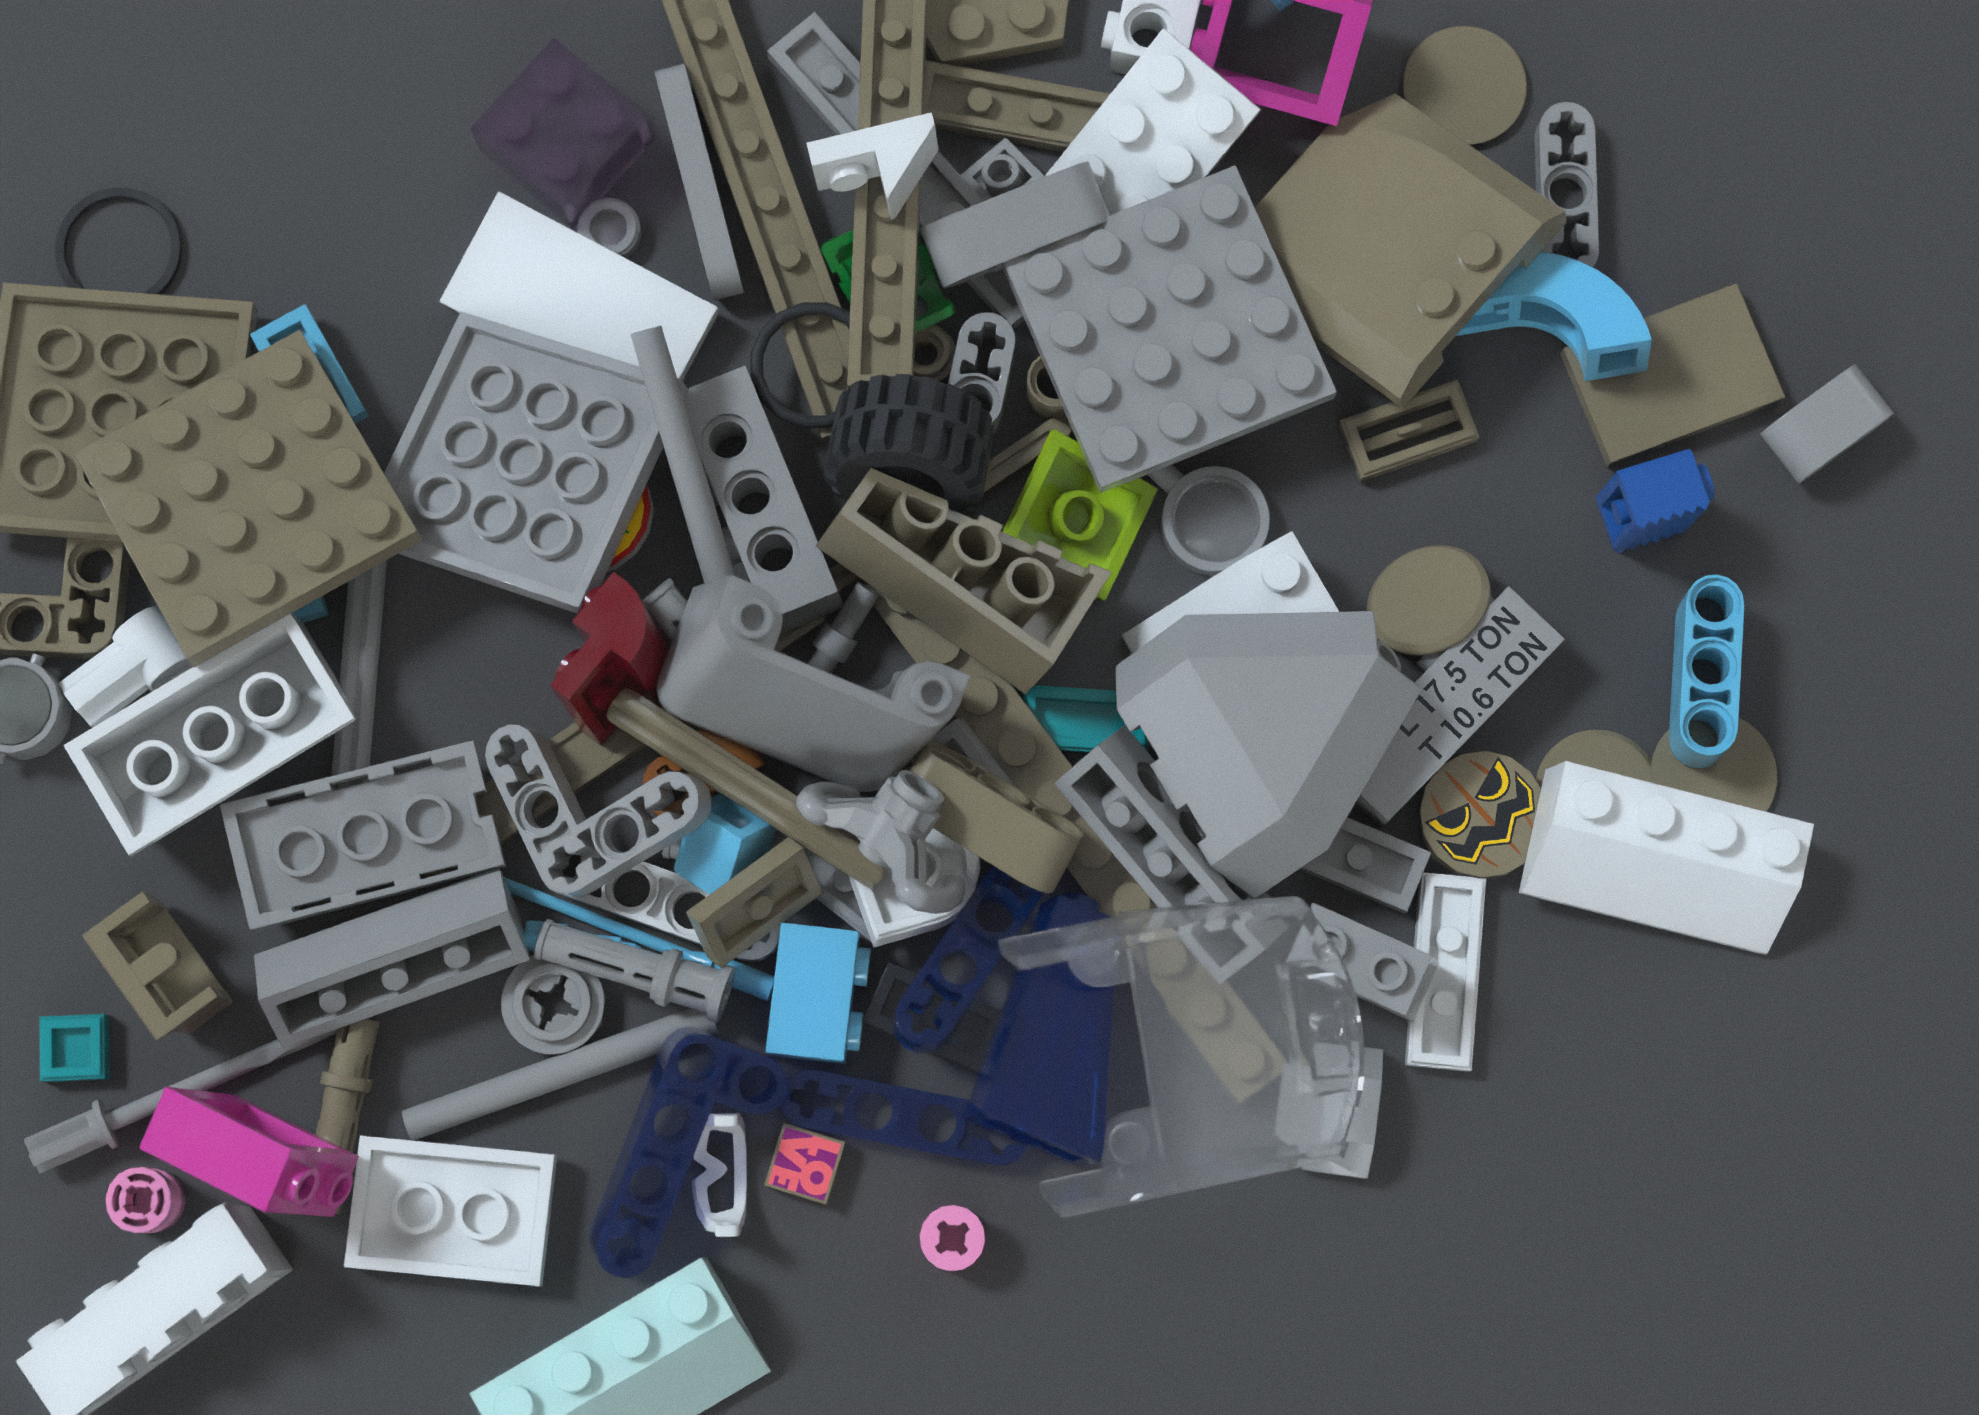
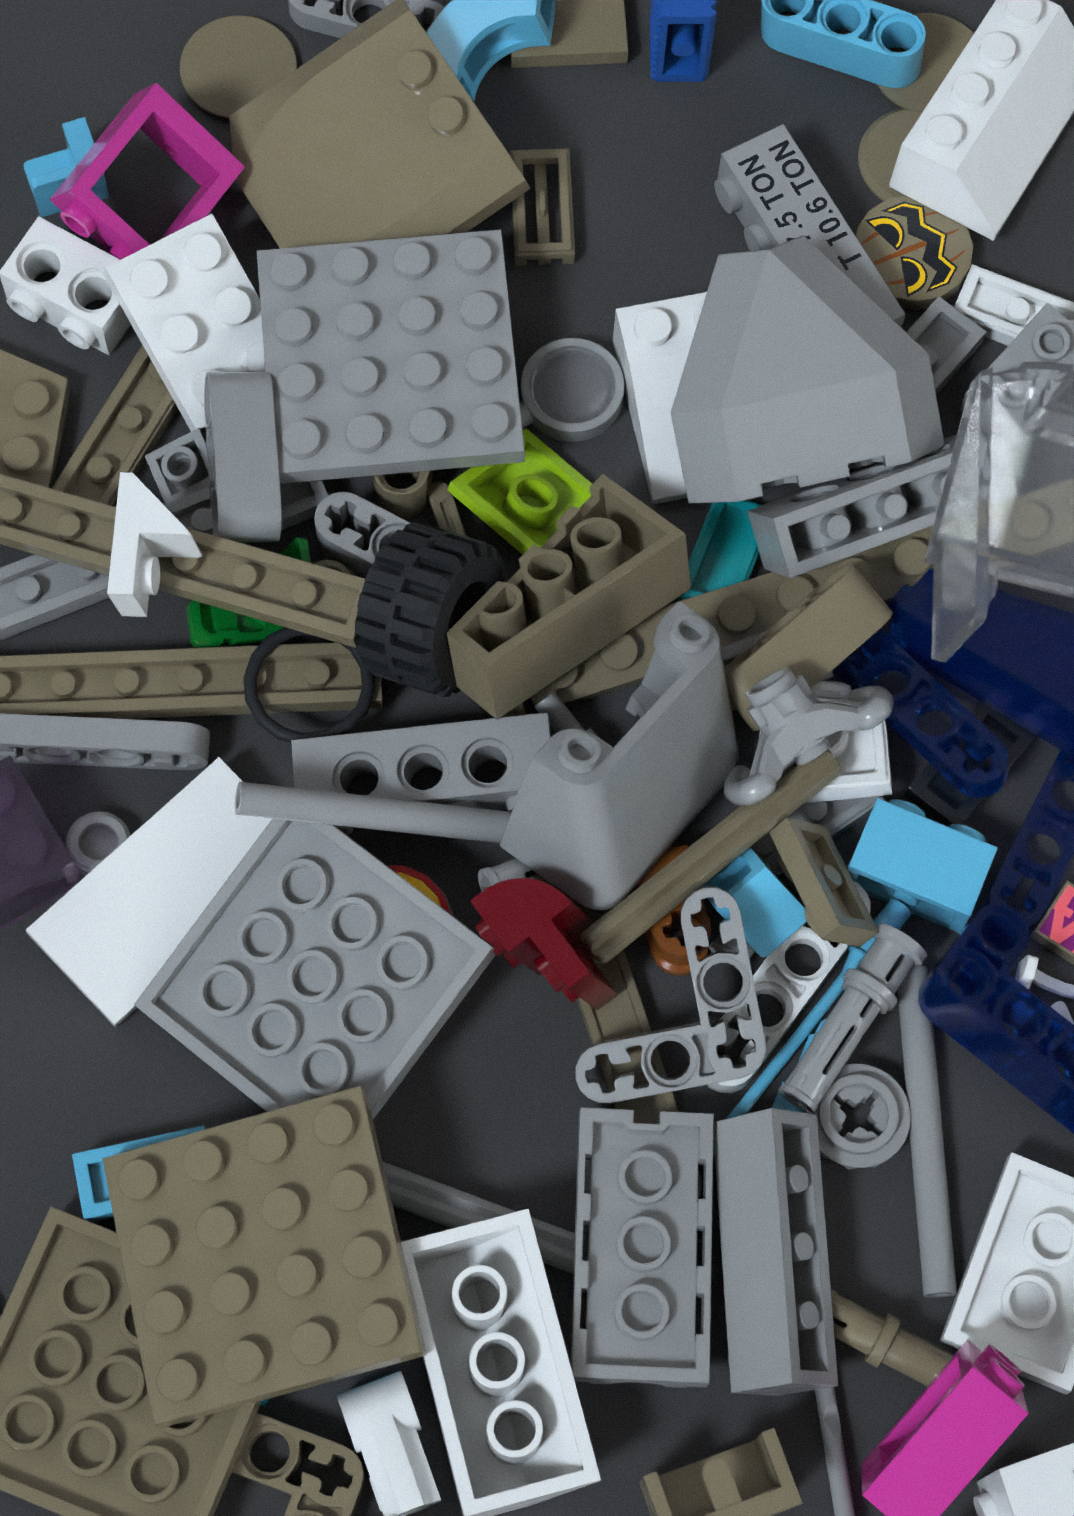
camera: 75 degrees left, 10 degrees down
(1429, 599) = (704, 218): dark tan piece -> none

